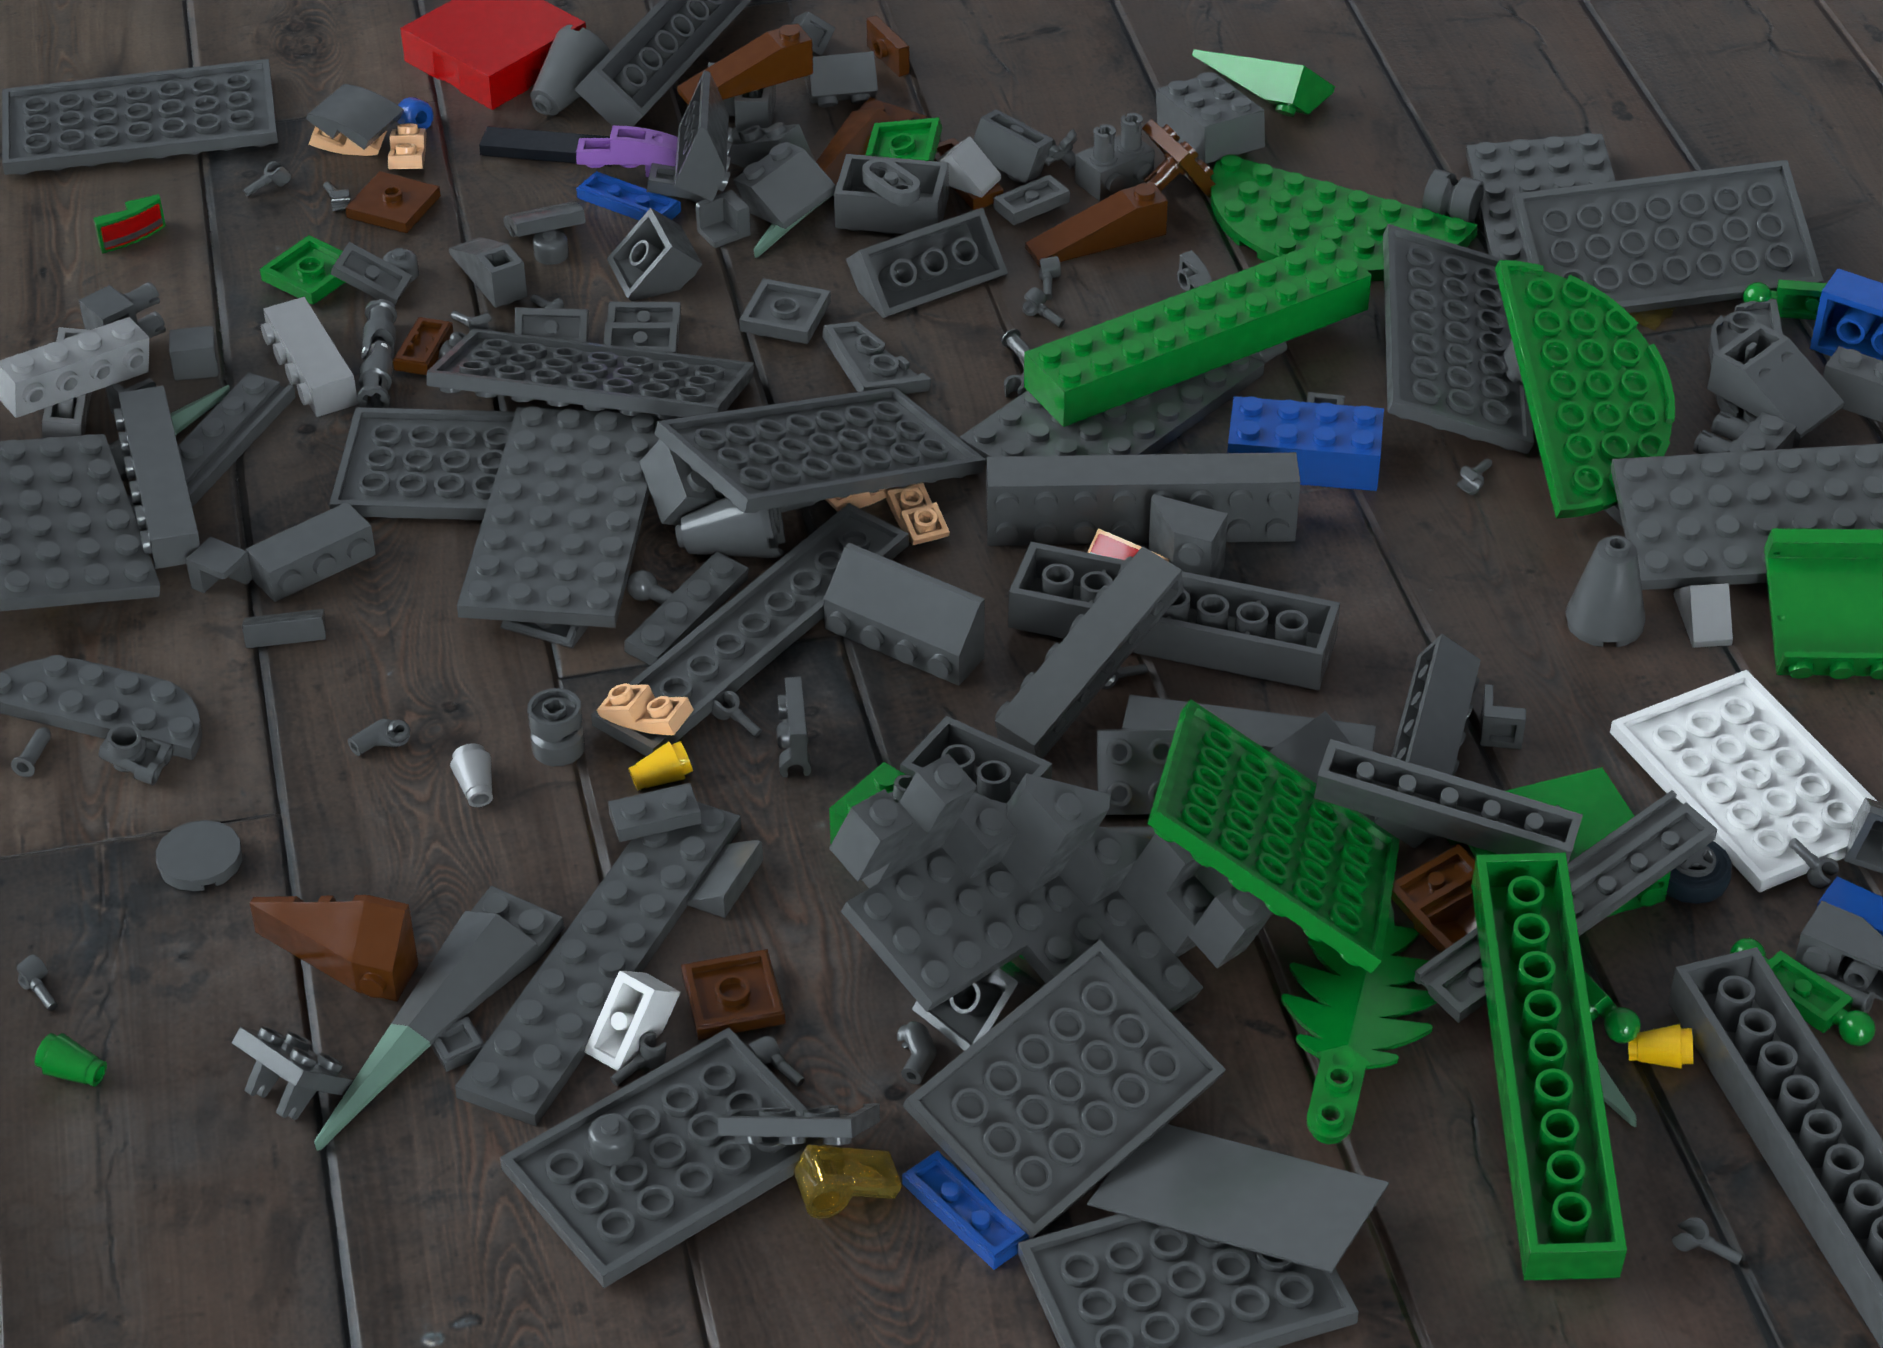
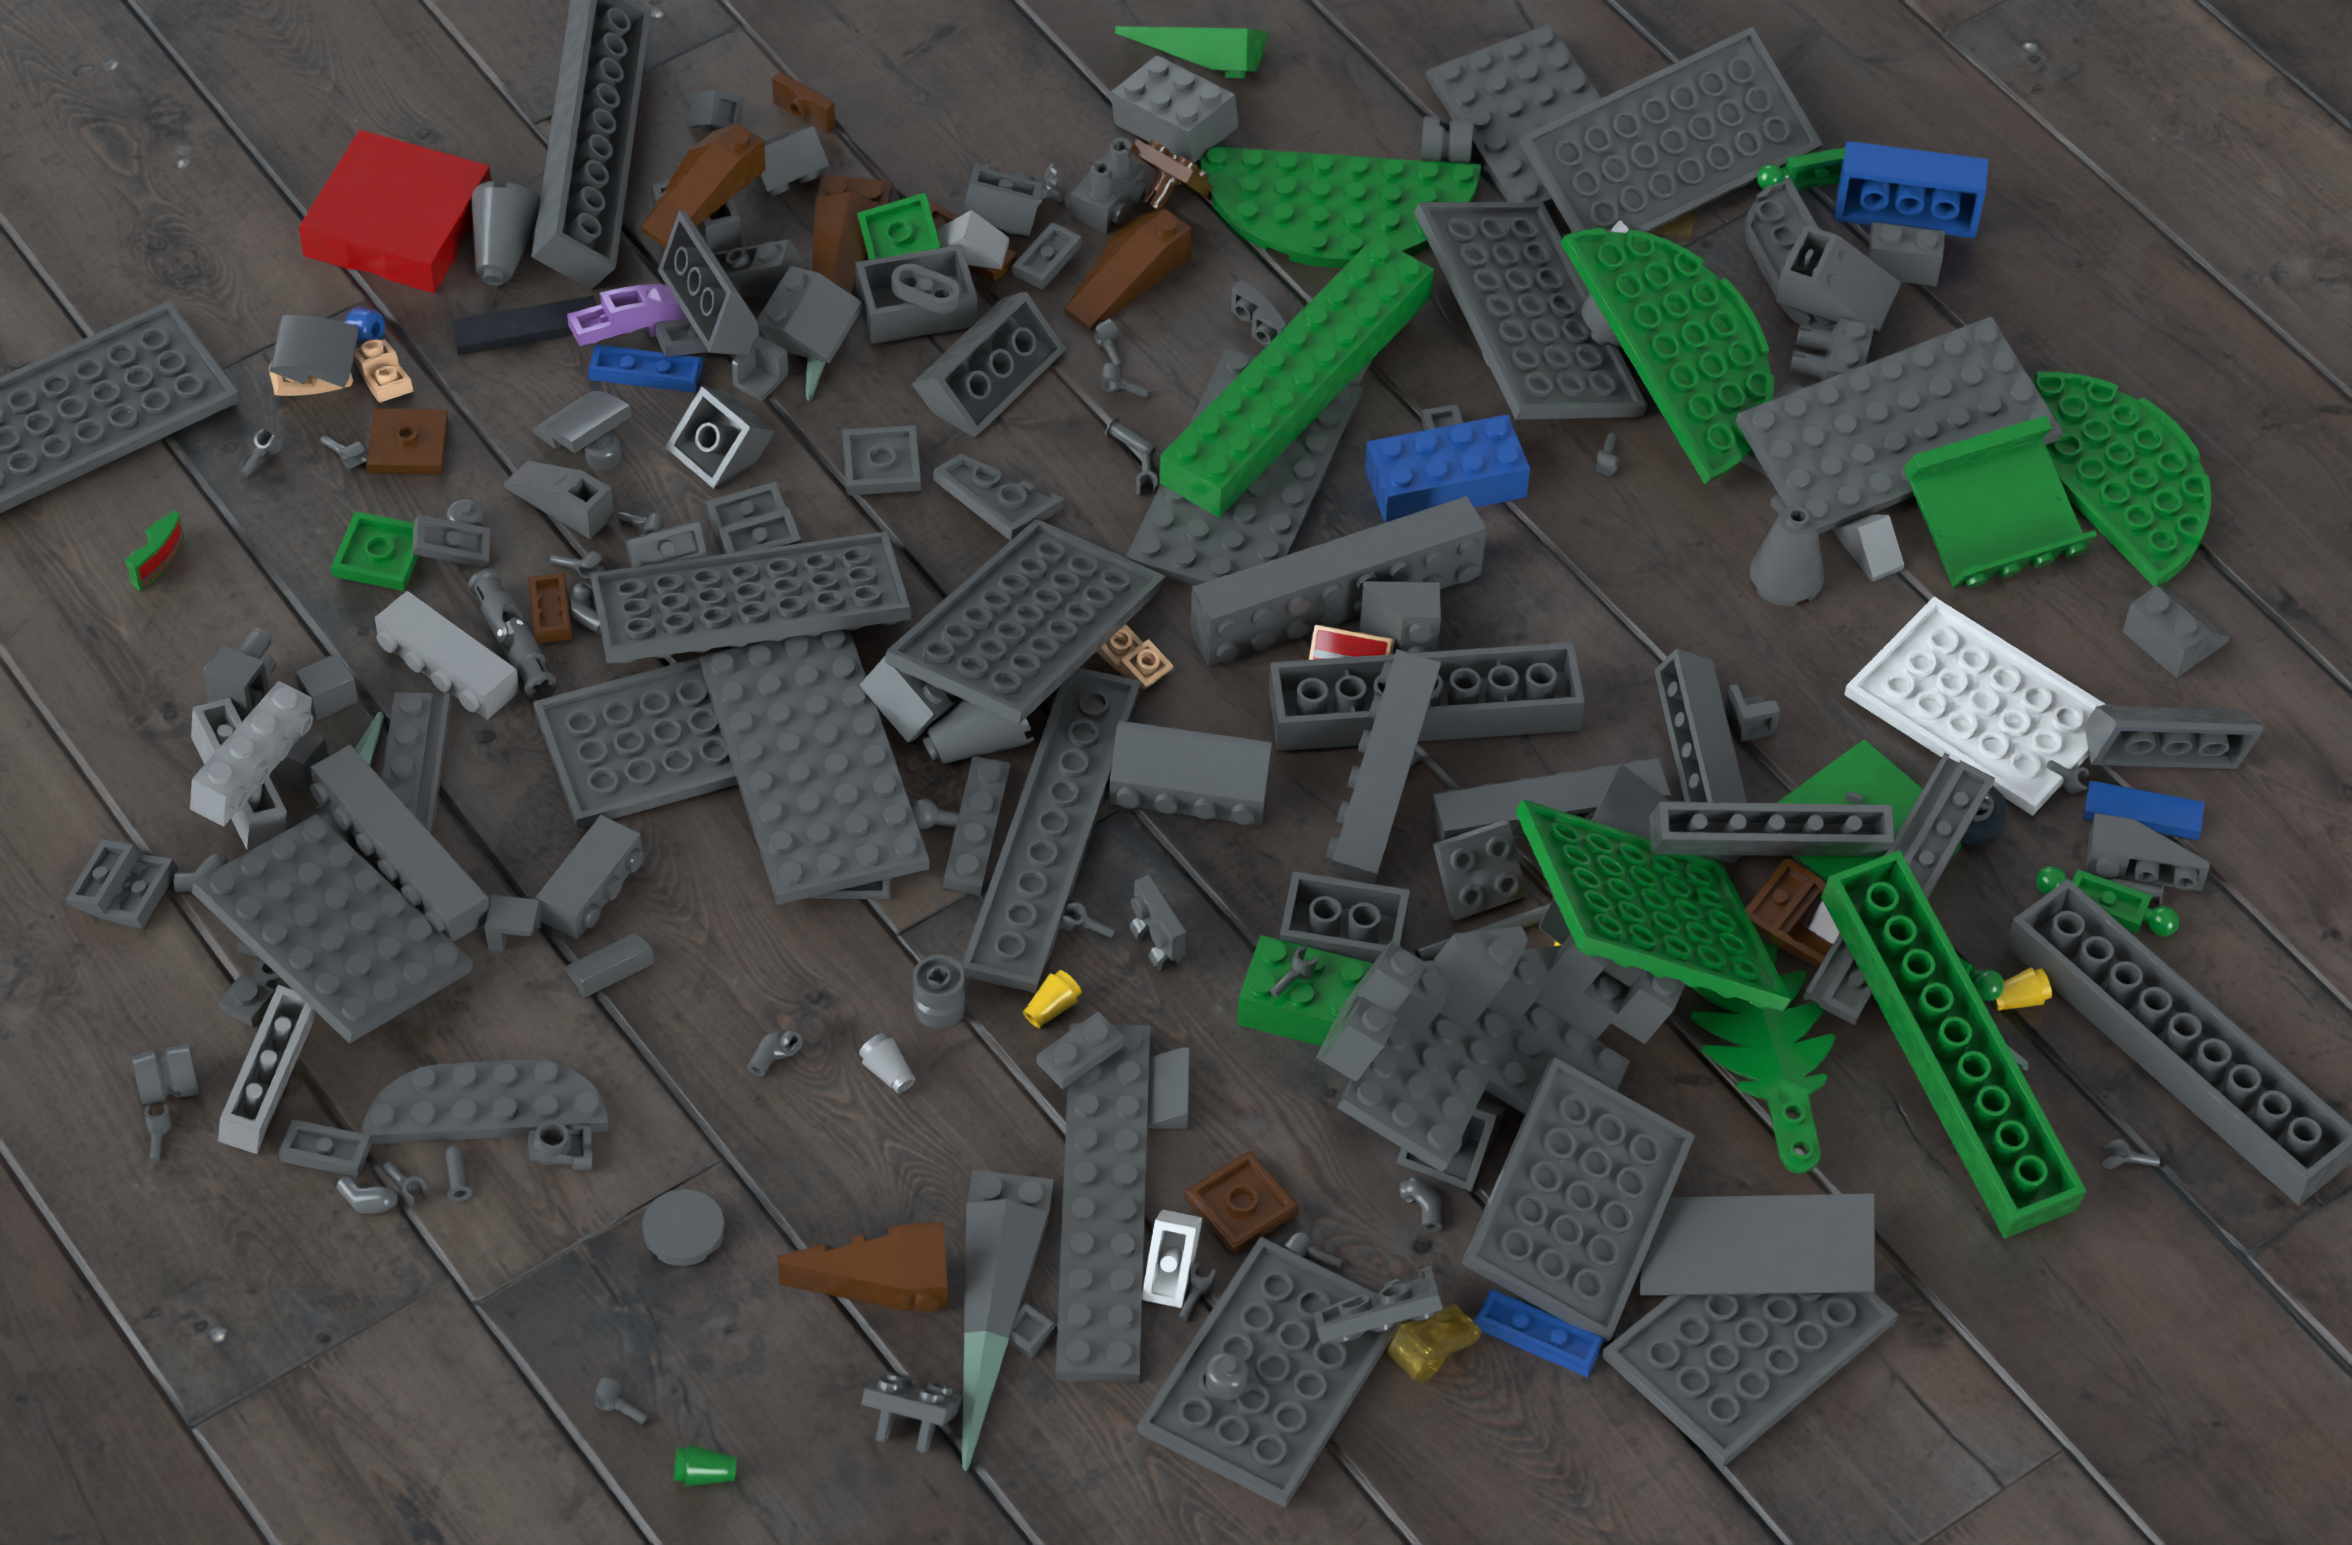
camera: 25 degrees left, 10 degrees up
(639, 710) = (1003, 950): light nougat slope -> none

